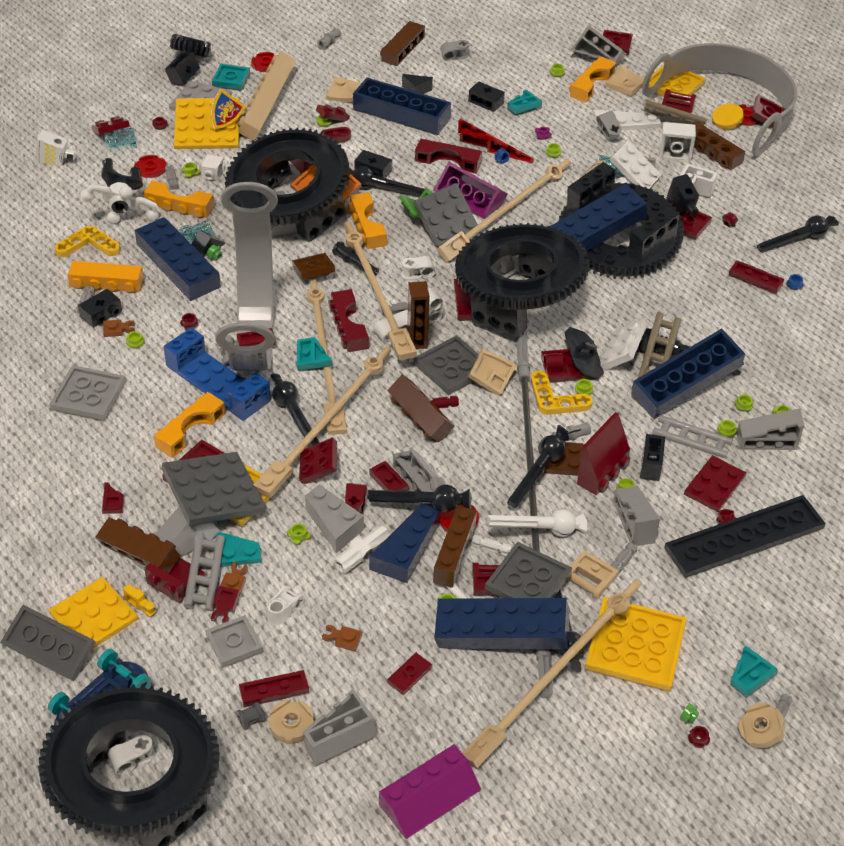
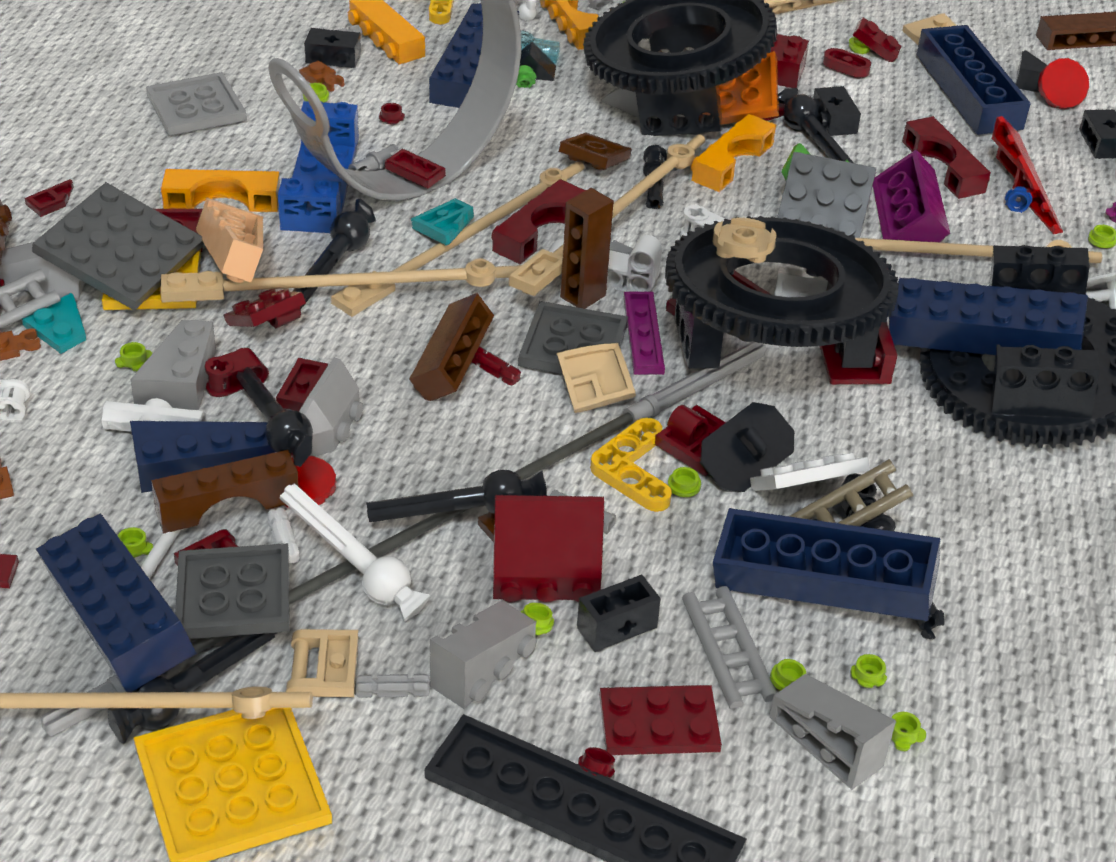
camera: 50 degrees right, 5 degrees down
(261, 439) = (232, 239): none -> light nougat wedge
(439, 81) = (1063, 83): none -> red tile
(474, 340) = (644, 333): none -> magenta tile
(492, 258) = (744, 239): none -> tan plate

